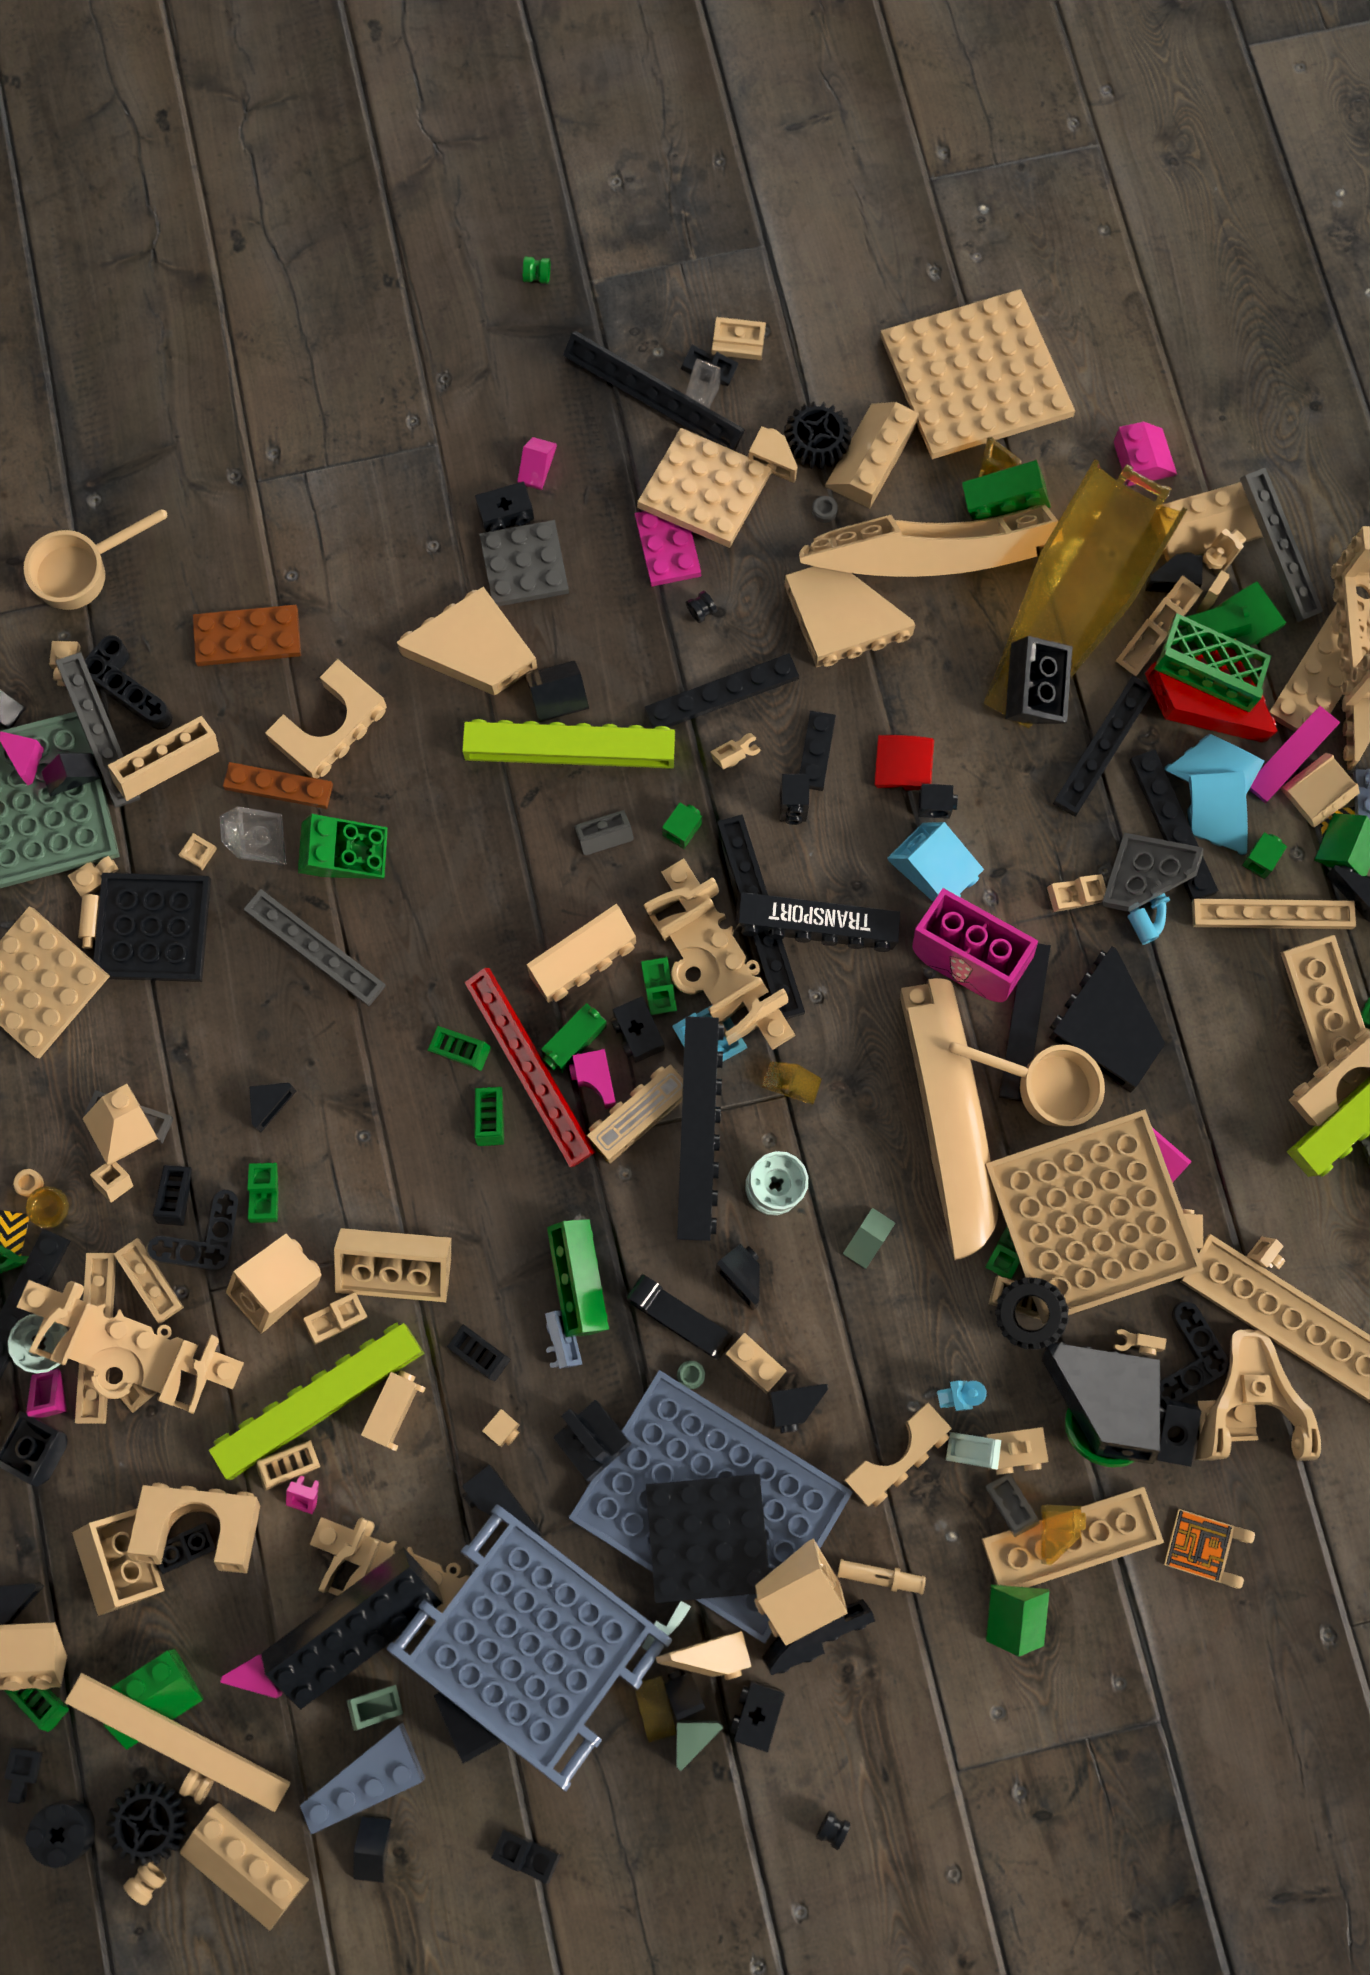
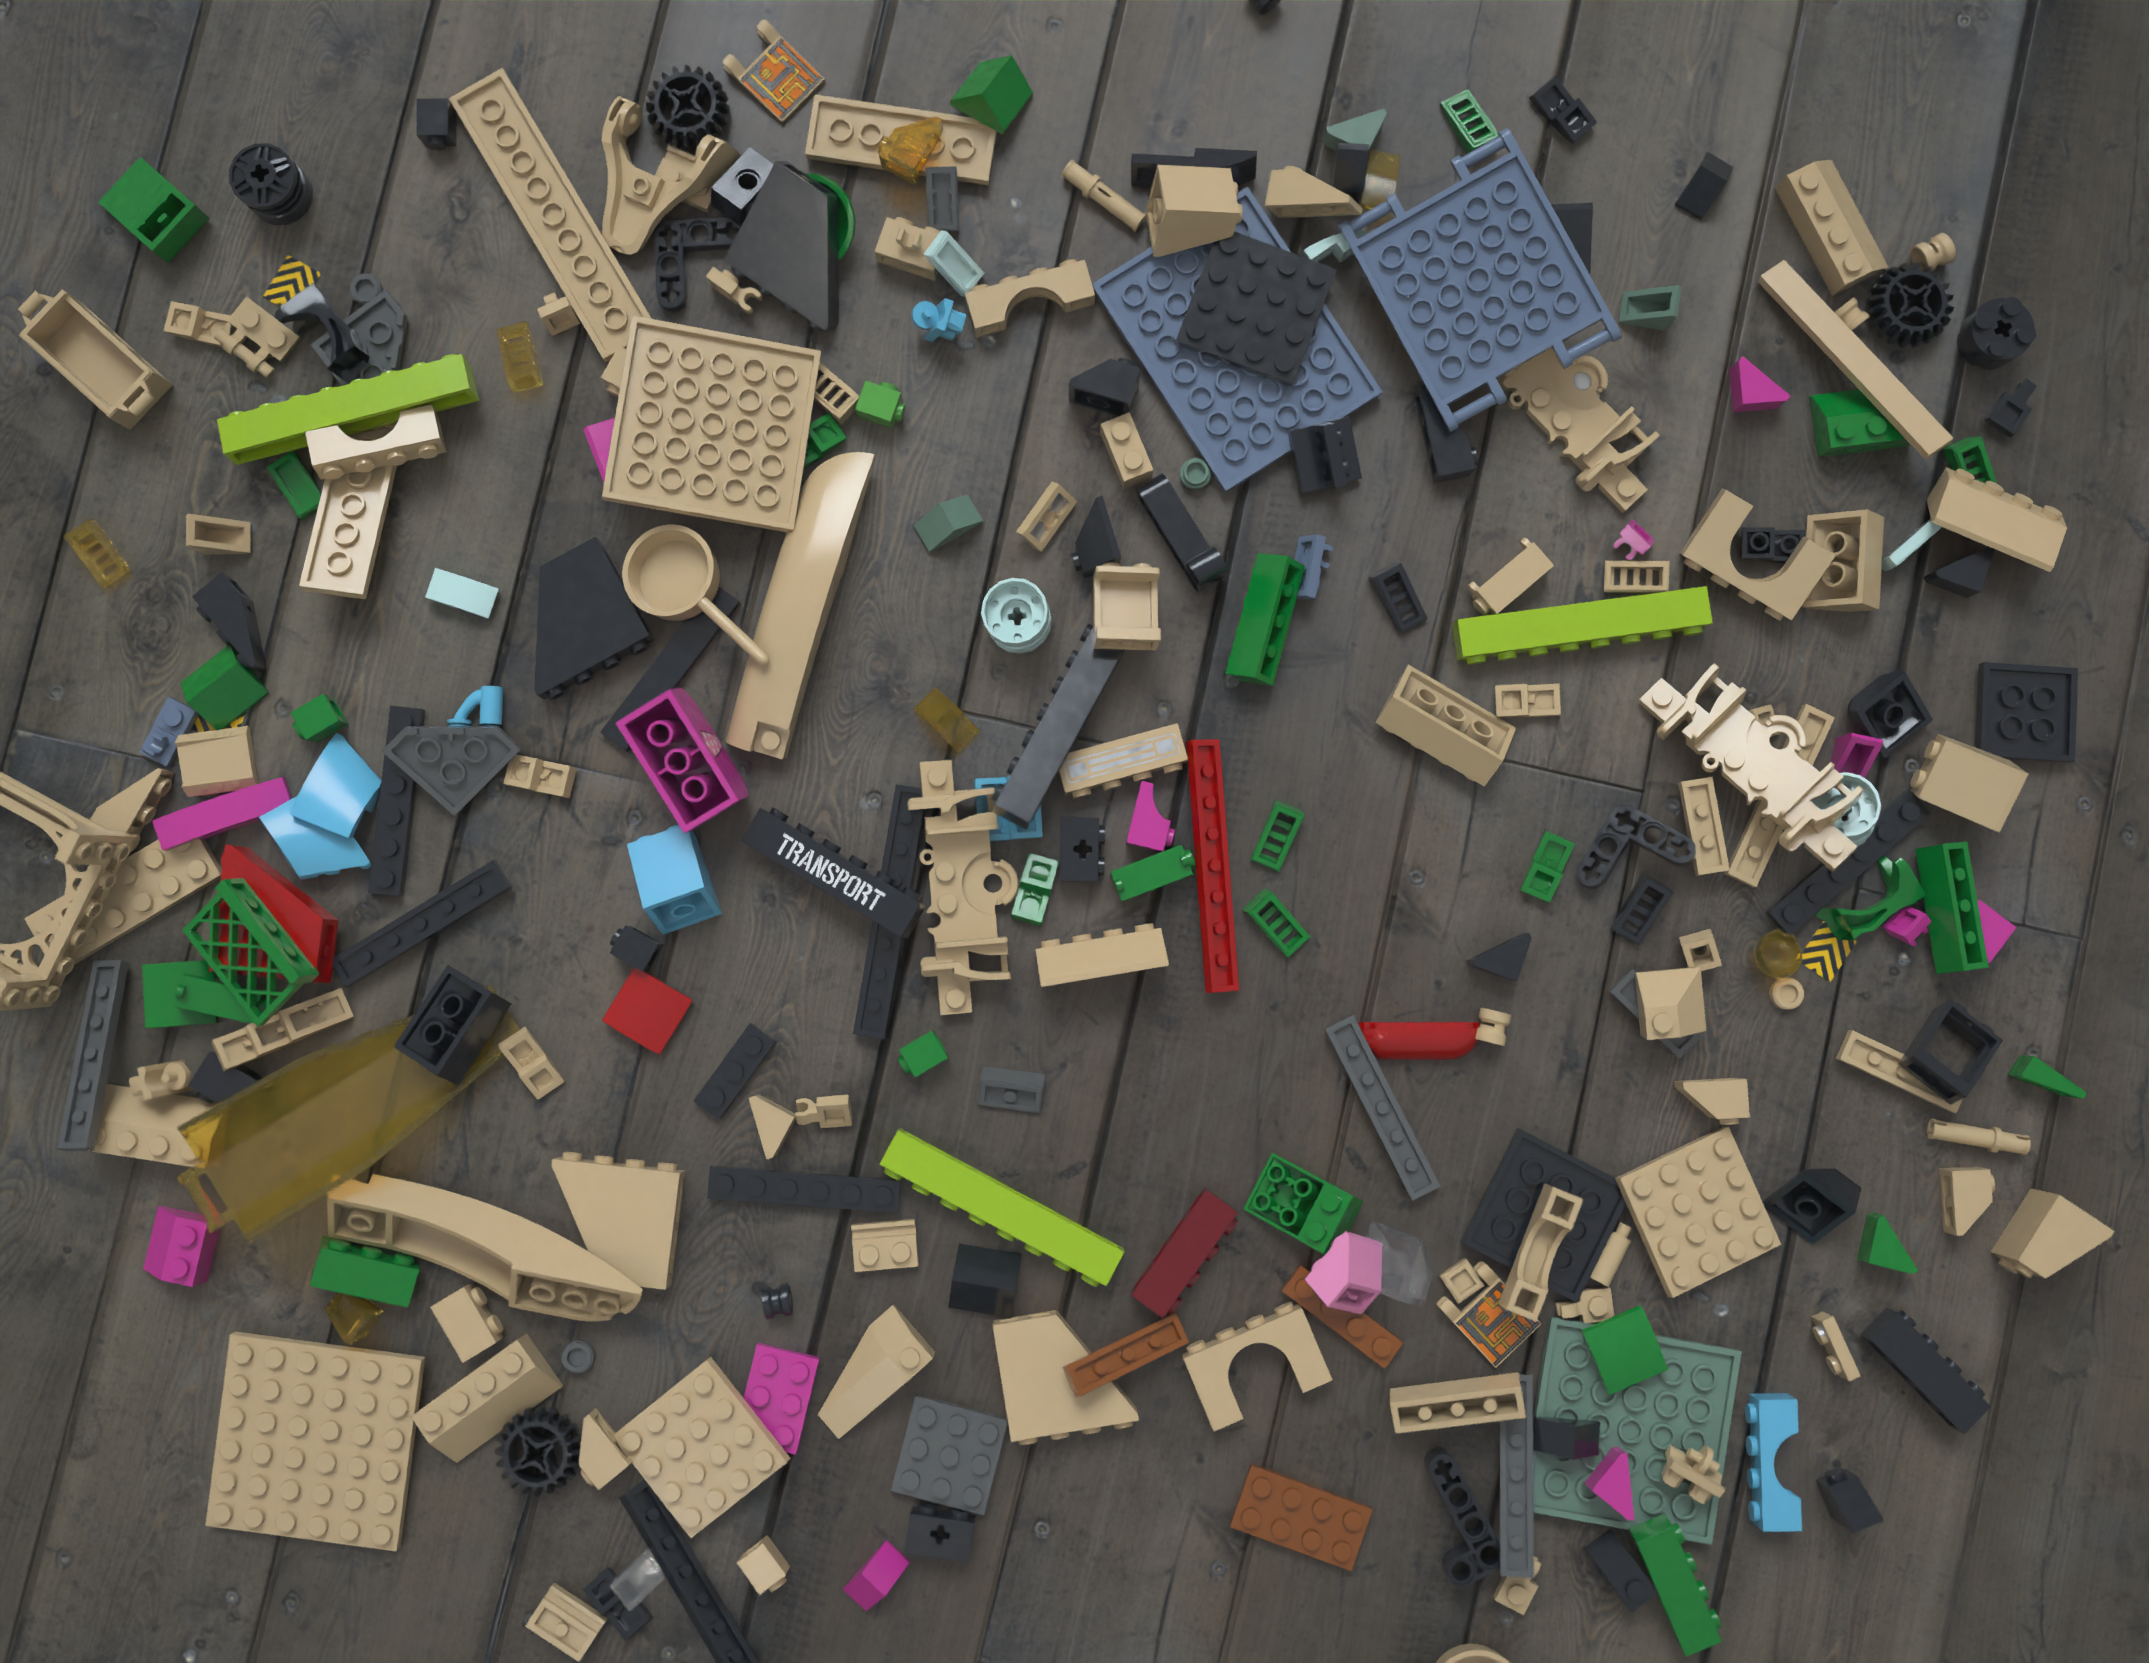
camera: 155 degrees left, 10 degrees up
(51, 853) = (1624, 1349): none -> green slope
(53, 1075) = (1718, 1098): none -> tan slope
(68, 1602) = (1909, 545): none -> light aqua tile
(146, 865) = (1529, 1275): none -> tan arch
(160, 835) = (1487, 1323): none -> flag
(254, 1046) = (1492, 1034): none -> tan wheel
(273, 1282) = (1574, 764): tan slope -> none
(285, 809) = (1348, 1273): none -> bright pink slope
(307, 1013) = (1420, 1039): none -> red brick
(349, 1629) = (1643, 382): black brick -> none
(373, 1777) = (1684, 242): sand blue wedge -> none
(417, 774) = (1184, 1252): none -> dark red brick
(427, 681) = (1125, 1355): none -> dark orange plate
(502, 1429) = (1408, 509): tan plate -> none
(587, 1805) = (1478, 115): none -> green slope
(604, 596) = (879, 1366): none -> tan wedge
(619, 432) = (764, 1566): none -> tan brick
(642, 681) = (885, 1245): none -> tan plate
(692, 1228) = (1126, 607): none -> tan panel
(760, 1733) = (1291, 110): black brick -> none
(770, 726) = (772, 1123): none -> tan slope
(793, 1279) = (1046, 516): none -> tan piece
(794, 798) = (789, 1020): black brick -> none
(914, 494) = (468, 1321): none -> tan brick
(967, 687) = (531, 1063): none -> tan slope
(972, 1306) = (880, 404): none -> bright green brick
(1014, 1331) = (843, 340): black tyre -> none
(1213, 592) = (201, 1035): tan tile -> none
(1214, 999) = (461, 593): none -> light aqua slope
(1258, 1489) = (677, 127): none -> black gear
(1263, 1204) = (525, 375): none -> clear yellow slope
(1273, 914) = (346, 652): tan plate -> none

